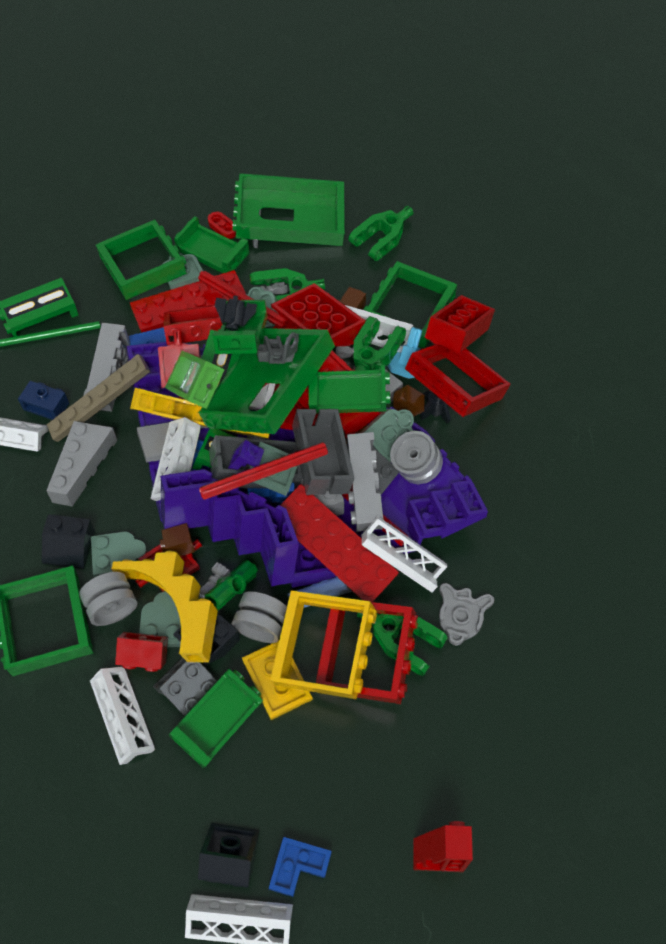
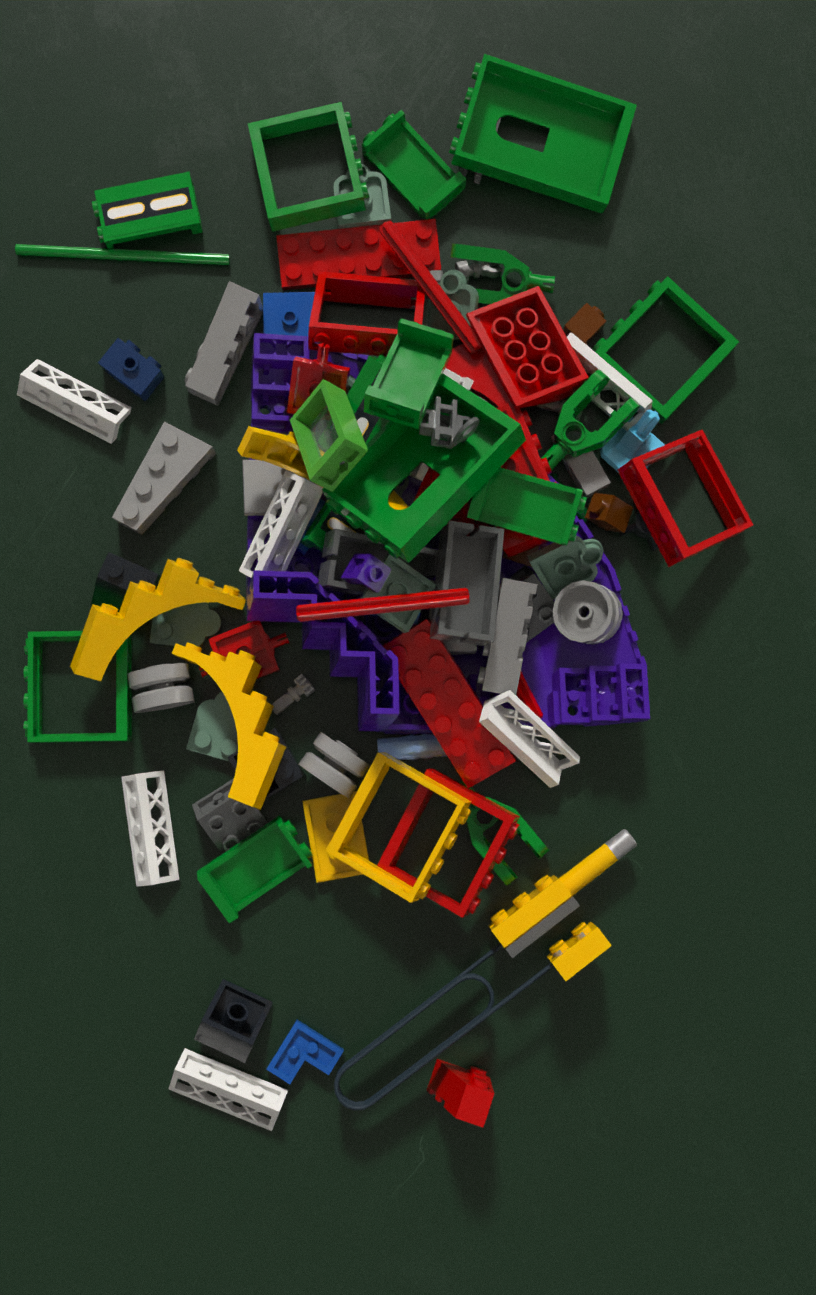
camera: 15 degrees right, 25 degrees up
(57, 560) = (108, 629): none -> yellow arch
(98, 397) = (203, 397): dark tan plate -> none
(141, 651) = (187, 762): red brick -> none
(177, 540) = (259, 635): reddish brown brick -> none
(221, 224) = (437, 132): red plate -> none
(231, 584) = (310, 712): green piece -> none
(234, 313) = (405, 352): black brick -> none
(389, 223) = (669, 191): green piece -> none
(439, 707) = (517, 929): none -> piece
(459, 324) = (717, 416): red brick -> none
(461, 614) = (577, 820): light grey tile -> none

